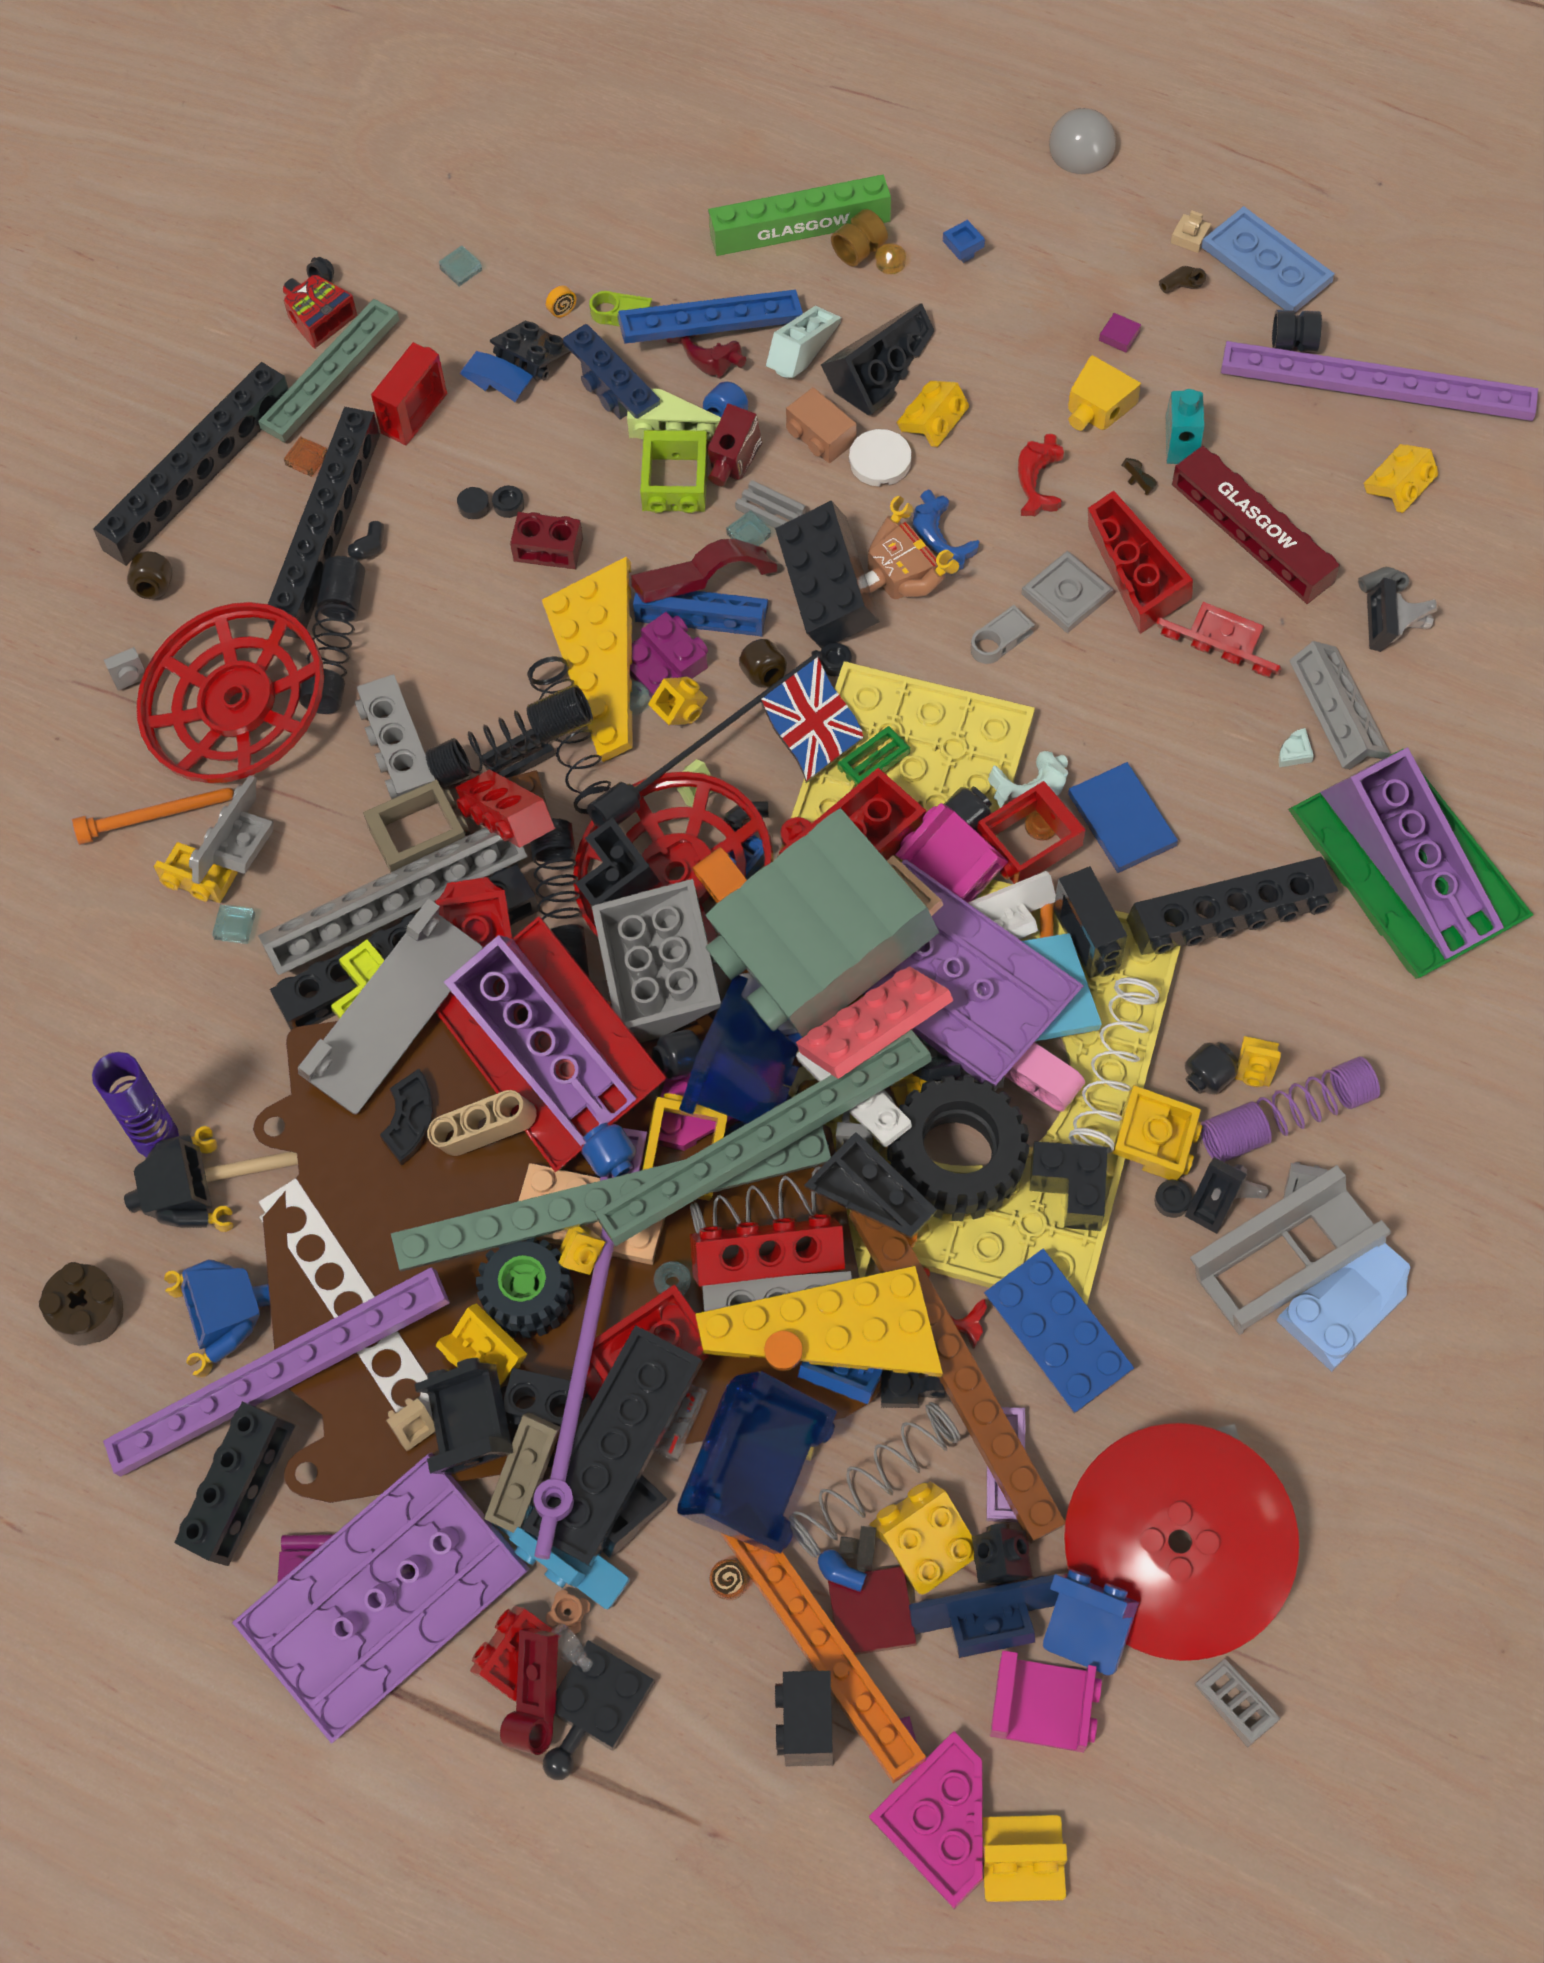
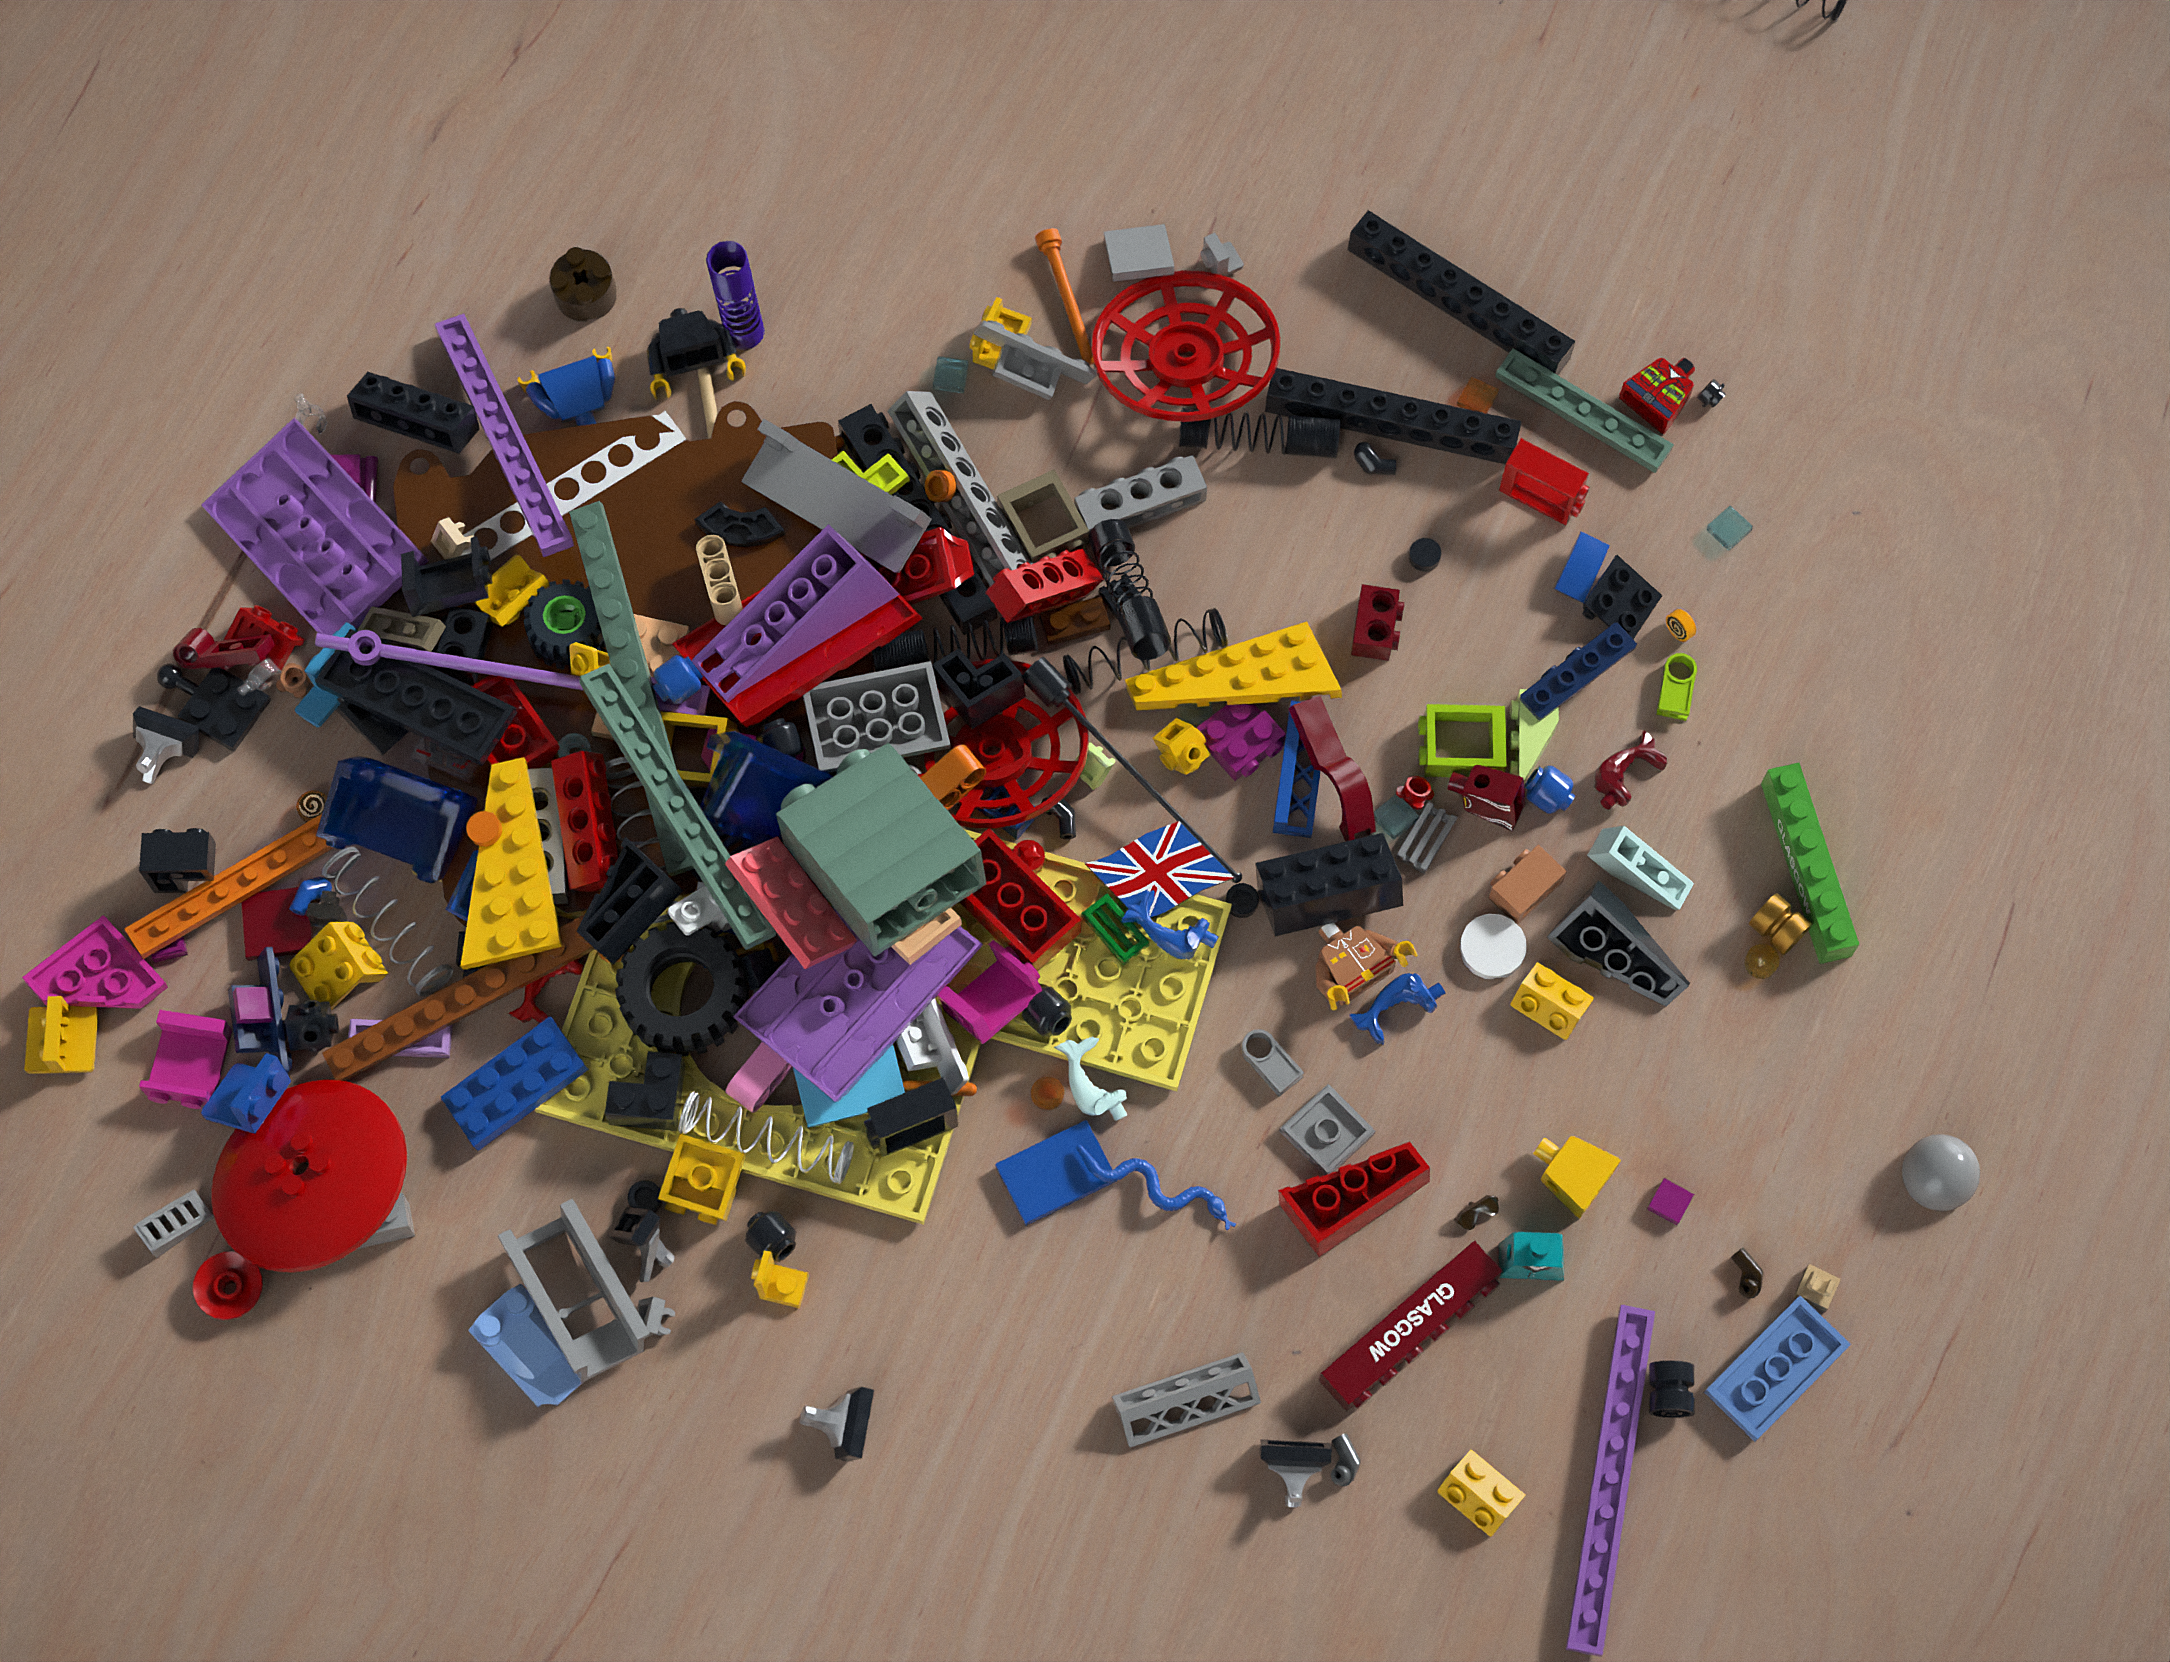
camera: 85 degrees right, 5 degrees up
(110, 743) = (1139, 253): none -> light grey tile
(149, 575) = (1327, 268): dark brown head -> none
(209, 1626) = (306, 409): none -> clear piece
(377, 914) = (940, 486): none -> orange tile
(508, 501) = (1428, 587): black tile -> none
(644, 1764) = (161, 739): none -> piece
(709, 316) = (1660, 771): blue plate -> none
(724, 512) = (1415, 791): none -> red plate
(762, 663) = (1230, 827): dark brown head -> none
(891, 700) = (1176, 943): none -> blue animal
(964, 240) = (1782, 1033): blue tile -> none
(981, 1621) = (252, 1005): none -> magenta tile
(1031, 460) = (1484, 1095): red animal -> none
(1055, 815) = (1040, 1097): red window -> none
(1144, 683) = (1214, 1204): none -> blue animal
(1224, 633) = (1265, 1283): bracket -> none
(1248, 1127) = (709, 1265): medium lavender piece -> none
(1276, 885) = (922, 1178): black brick -> none
(1296, 749) = (1135, 1351): light aqua tile -> none
(1322, 1617) = (213, 1278): none -> red dish
(1397, 994) = (843, 1422): none -> piece
(1410, 863) = (999, 1454): piece -> none

